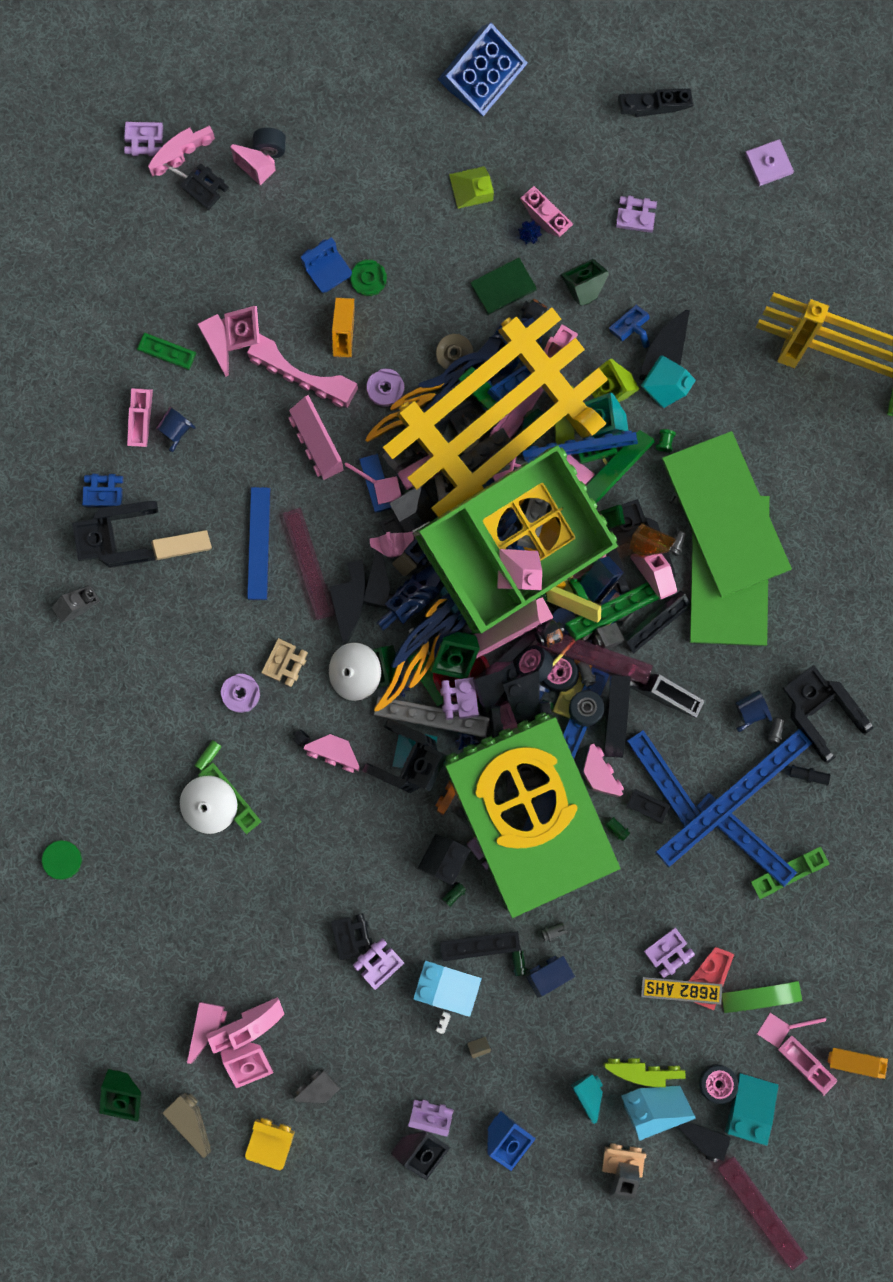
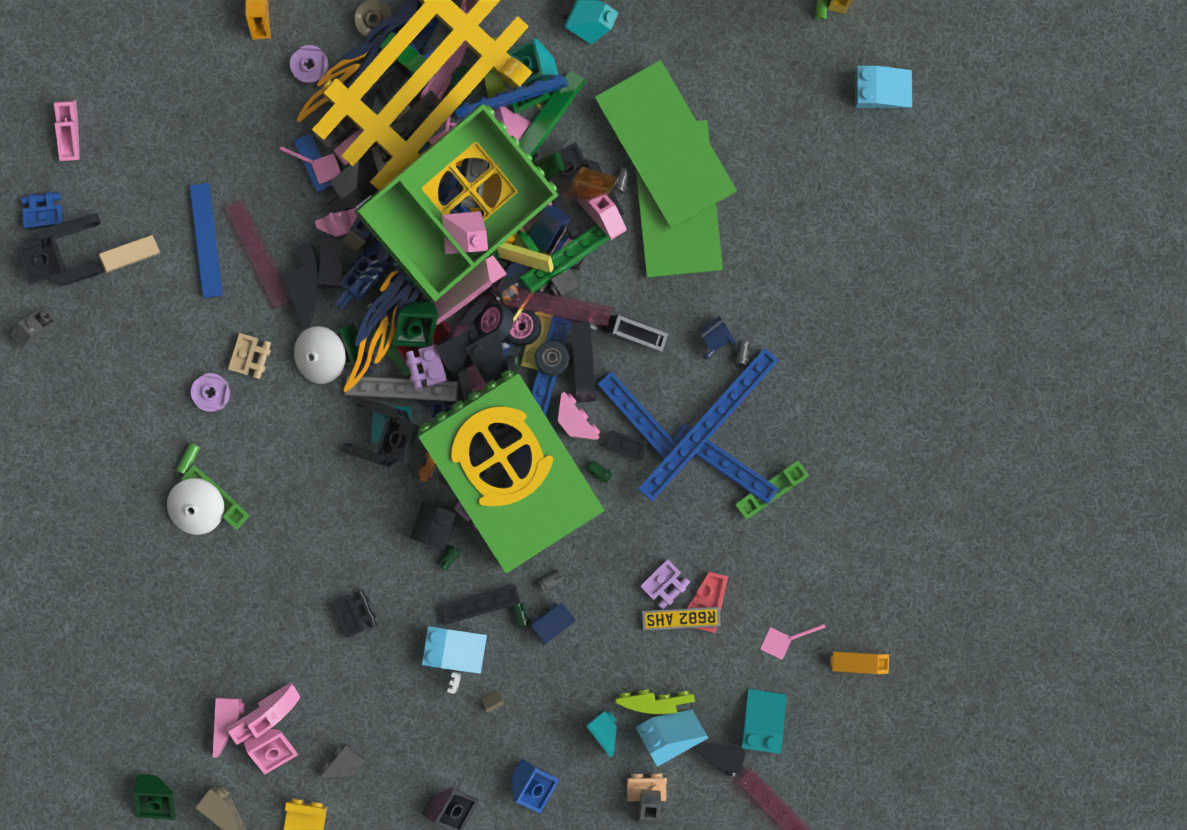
camera: 10 degrees left, 5 degrees up
(61, 860) = (60, 581): green tile -> none
(166, 351) = (83, 58): green tile -> none
(174, 426) = (103, 135): dark blue hat -> none
(215, 336) = (133, 39): bright pink slope -> none
(242, 328) = (155, 26): bright pink slope -> none
(301, 737) = (276, 427): black plate -> none
(316, 439) = (247, 127): bright pink slope -> none
(334, 751) = (312, 436): bright pink slope -> none
(335, 388) = (260, 72): bright pink arch -> none
(382, 968) = (388, 639): lavender plate -> none
(431, 1117) = (455, 774): lavender plate -> none
(502, 388) = (423, 51): blue tile -> none
(588, 678) = (549, 327): dark grey pin -> none
(619, 381) = (541, 25): lime slope -> none
(657, 621) = (611, 262): black plate -> none
(665, 440) = (597, 78): green bush -> none
(726, 1091) = (738, 705): wheel -> none
(761, 997) = (760, 613): bright green slope -> none
(808, 1065) = (812, 672): bright pink slope -> none
(810, 775) = (781, 391): black pin -> none
(812, 692) = (771, 310): black plate -> none

